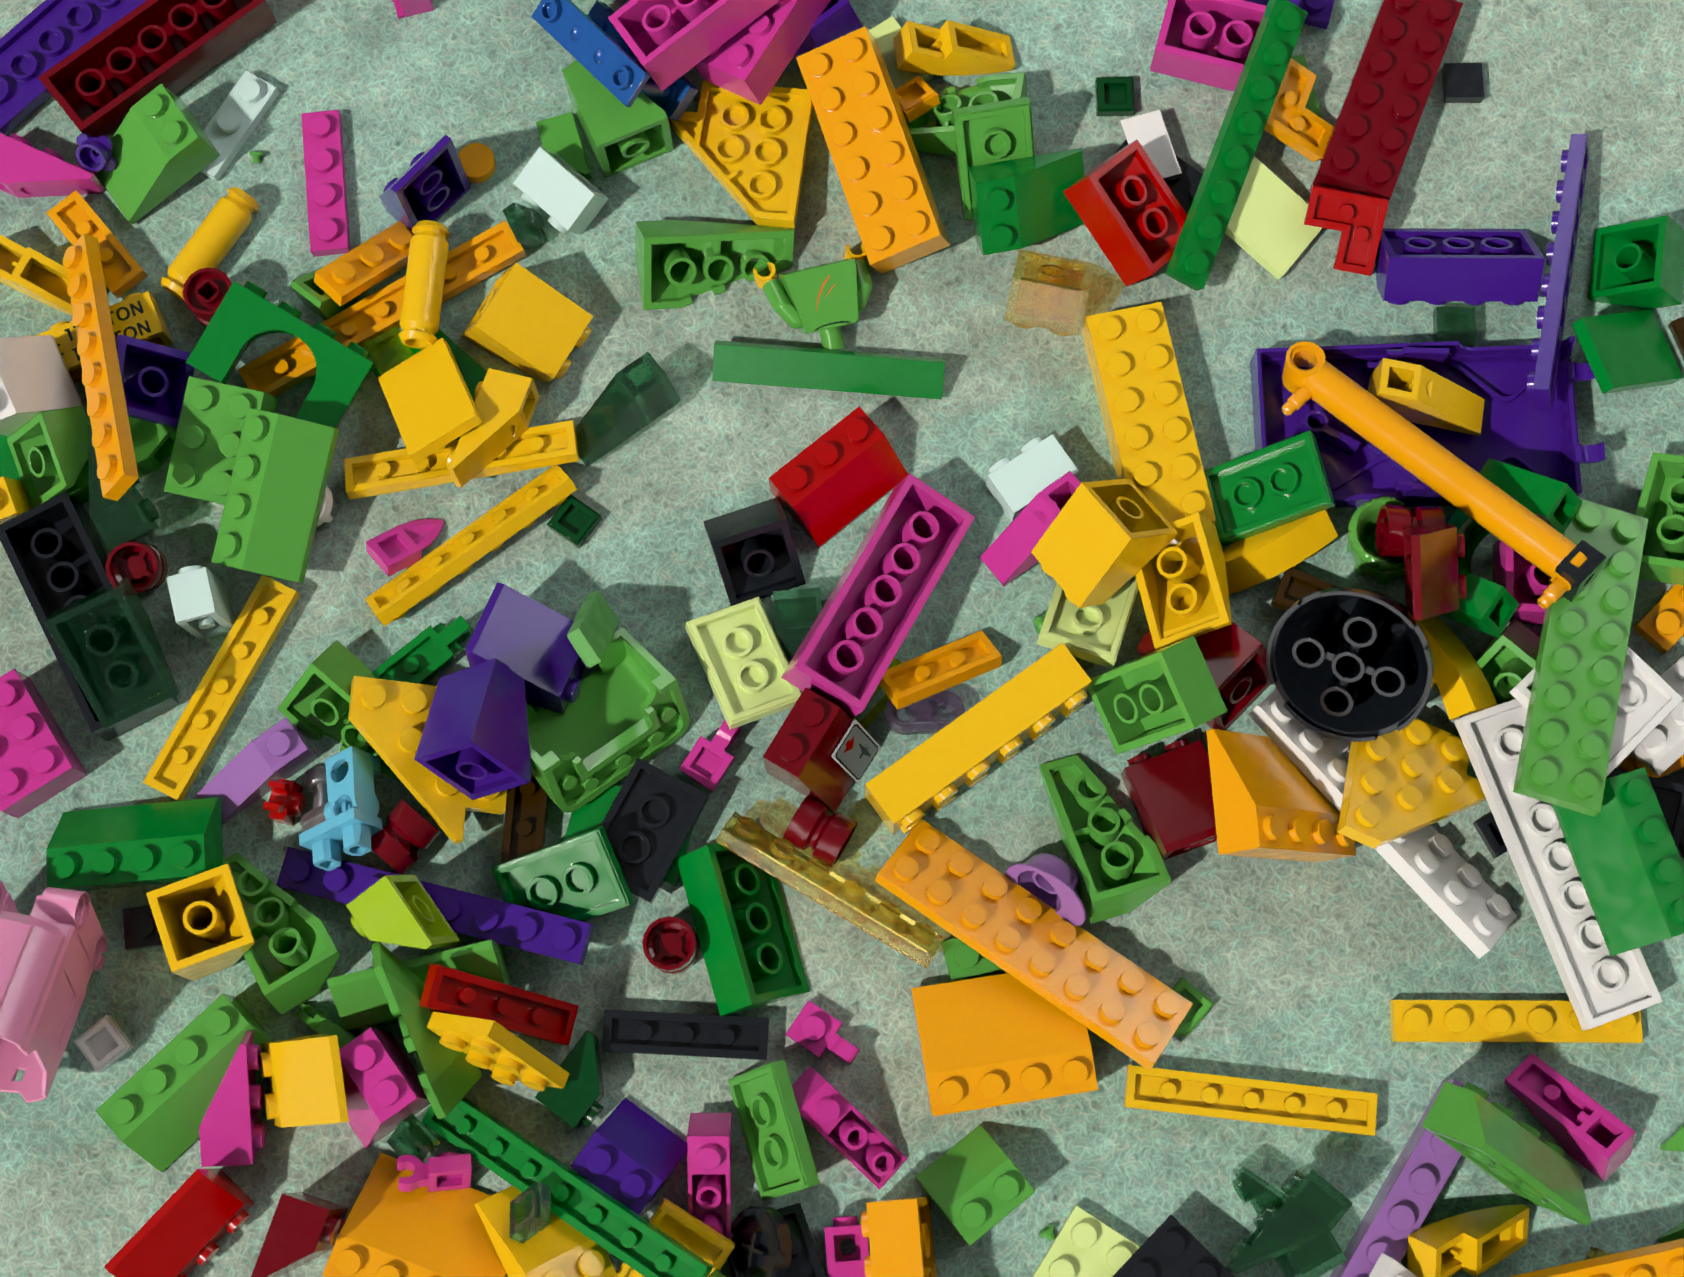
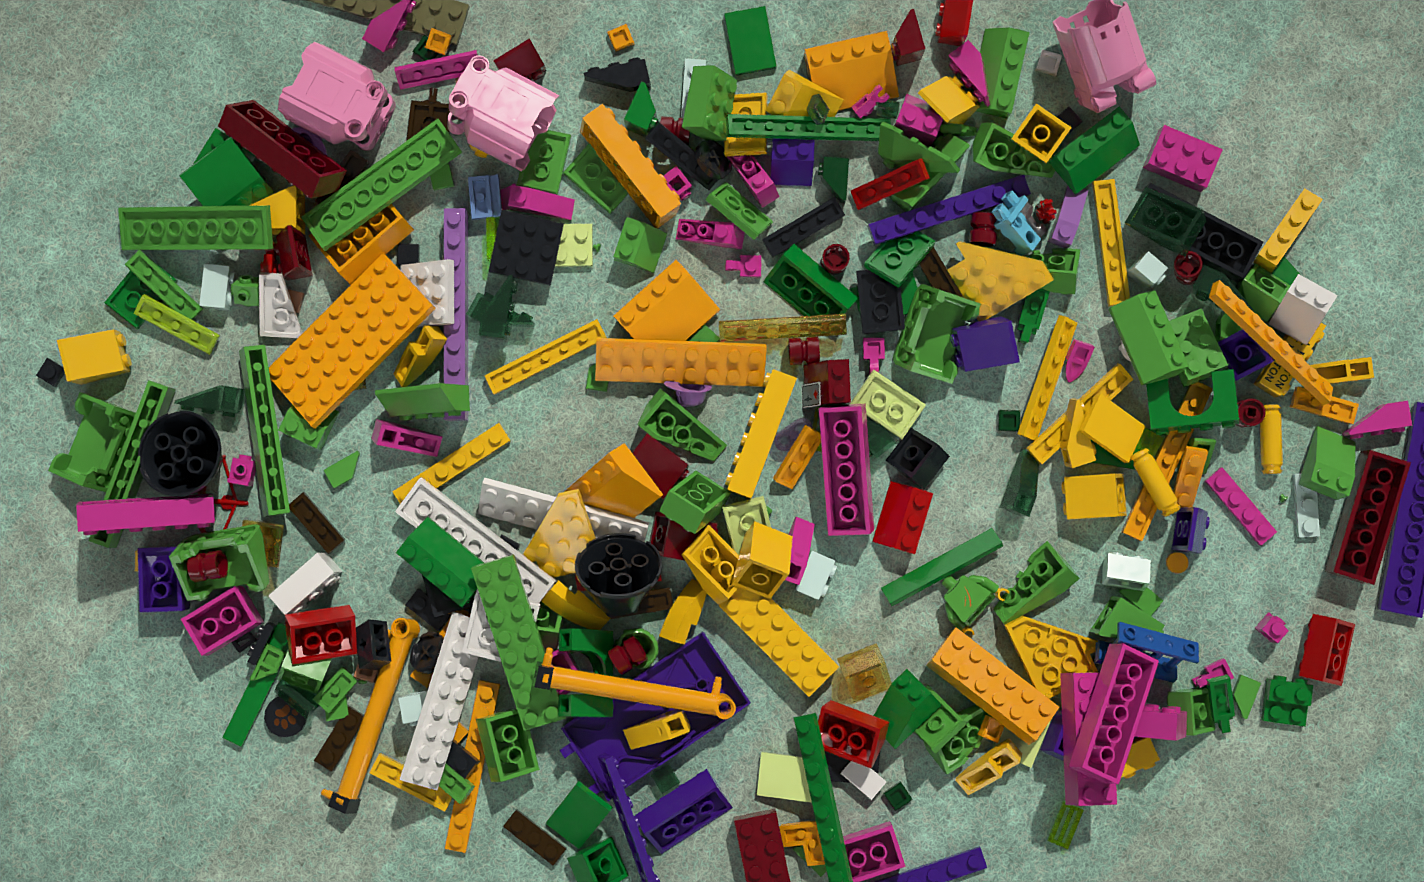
camera: 145 degrees right, 10 degrees up
(95, 153) = (1356, 445): dark purple plate -> none
(401, 914) = (955, 191): lime slope -> none
(478, 730) = (981, 291): dark purple slope -> none
(497, 1049) = (870, 163): yellow plate -> none
(526, 225) = (1130, 545): clear green plate -> none
(593, 629) = (963, 371): bright green tile -> none
(1268, 488) = (704, 635): green tile -> none
(1357, 217) = (743, 801): red plate -> none
(1432, 570) = (607, 632): dark red slope -> none

